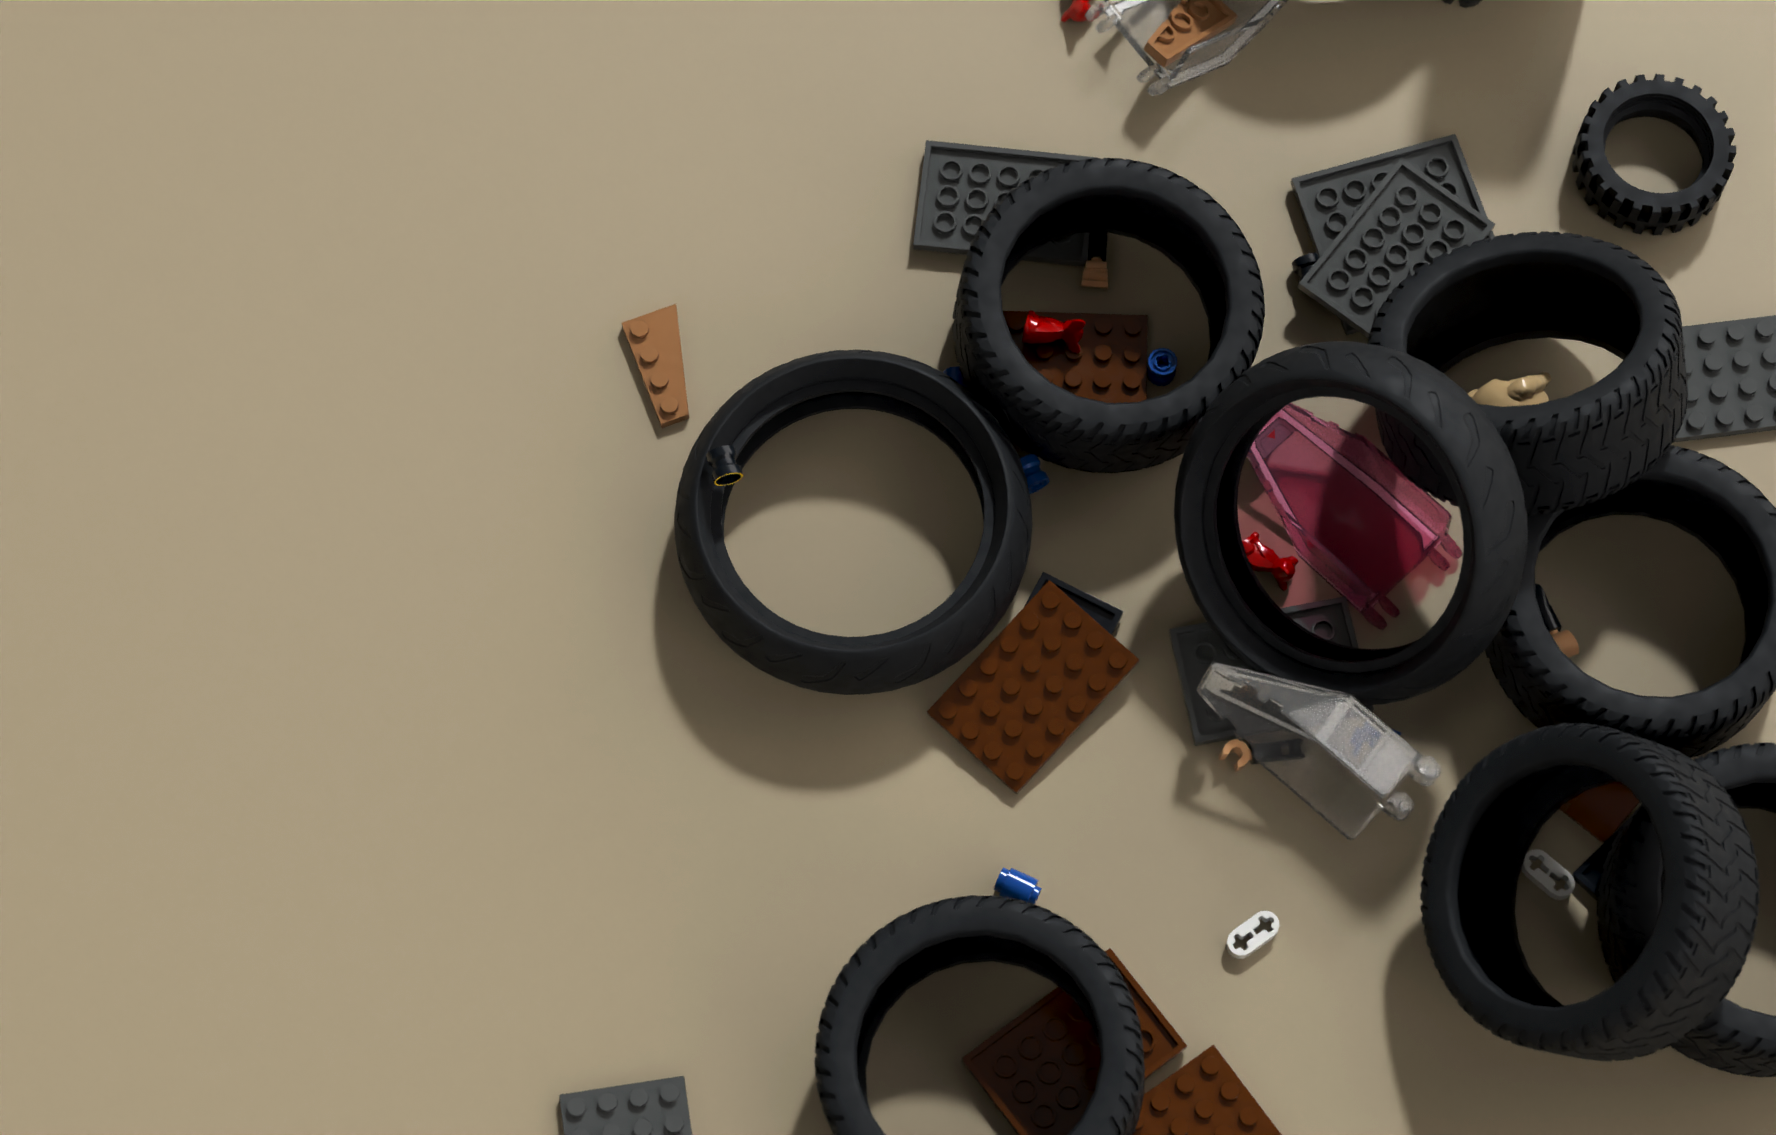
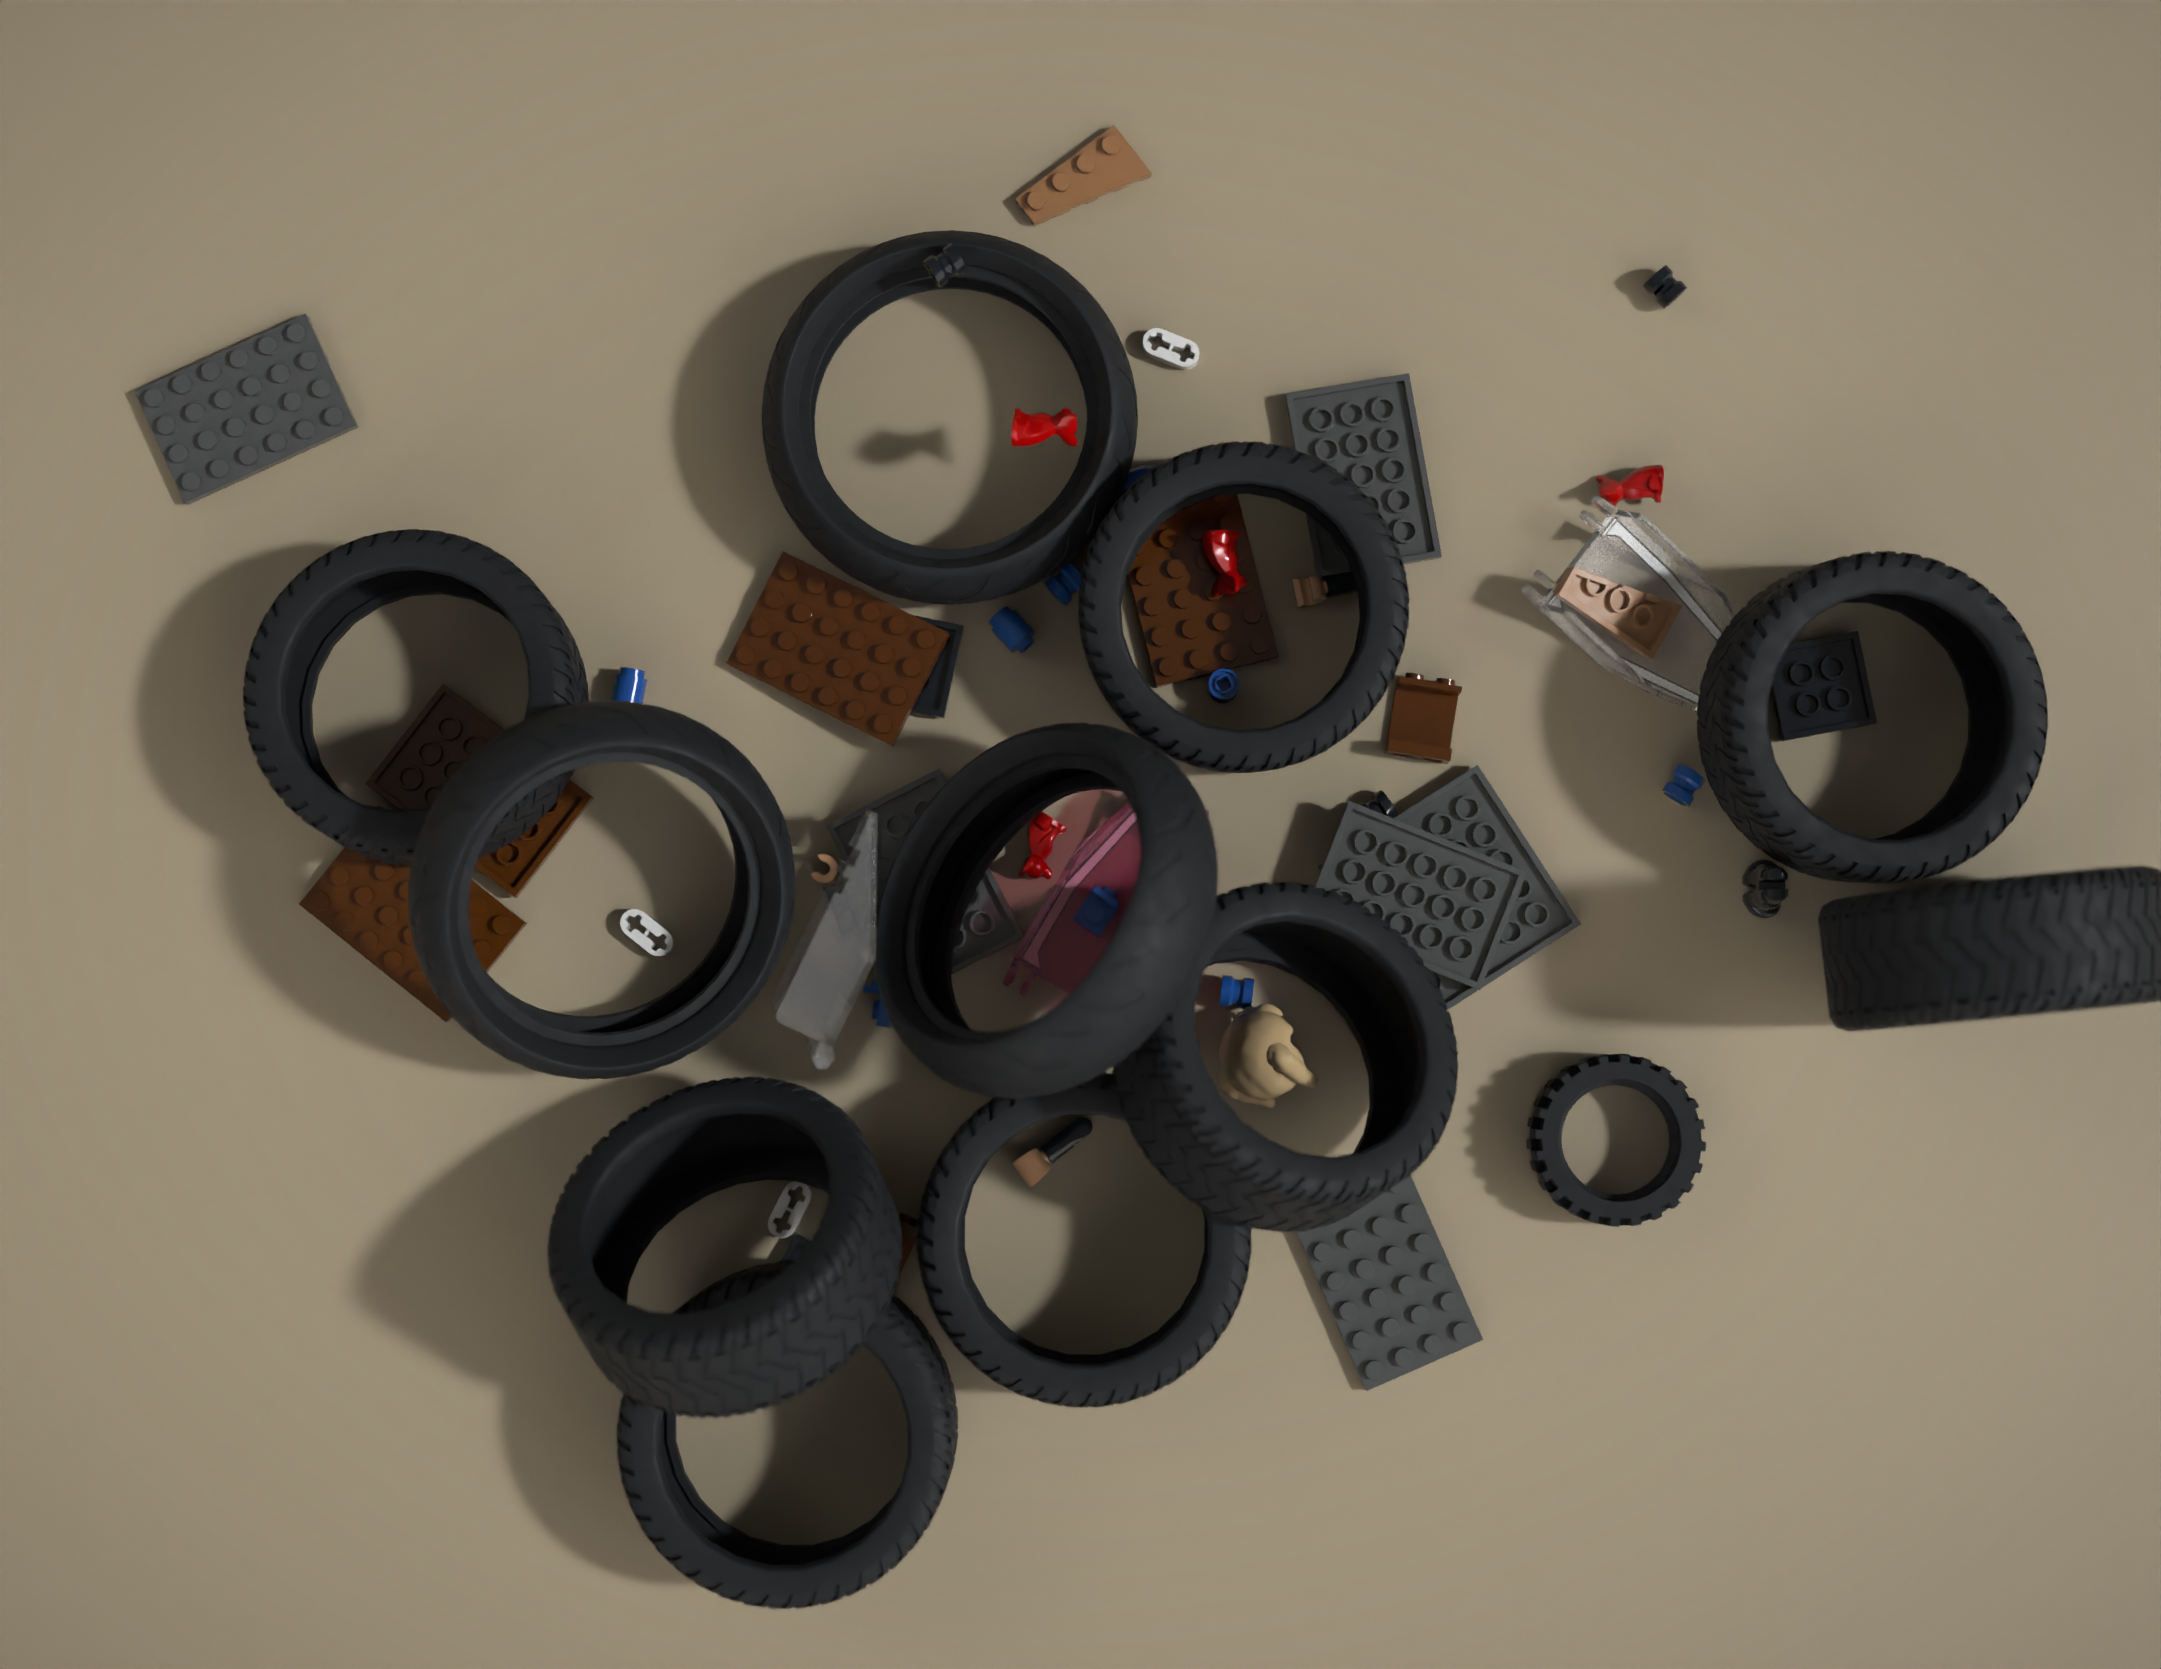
camera: 75 degrees right, 15 degrees up
(836, 326) = (1173, 342): none -> white beam
(899, 426) = (1037, 427): none -> red animal
(1059, 532) = (1012, 630): none -> blue brick
(1249, 211) = (1423, 718): none -> reddish brown panel
(1310, 846) = (683, 1016): none -> black tyre
(1338, 525) = (1097, 910): none -> blue bracket
(1354, 22) = (1683, 785): none -> blue wheel

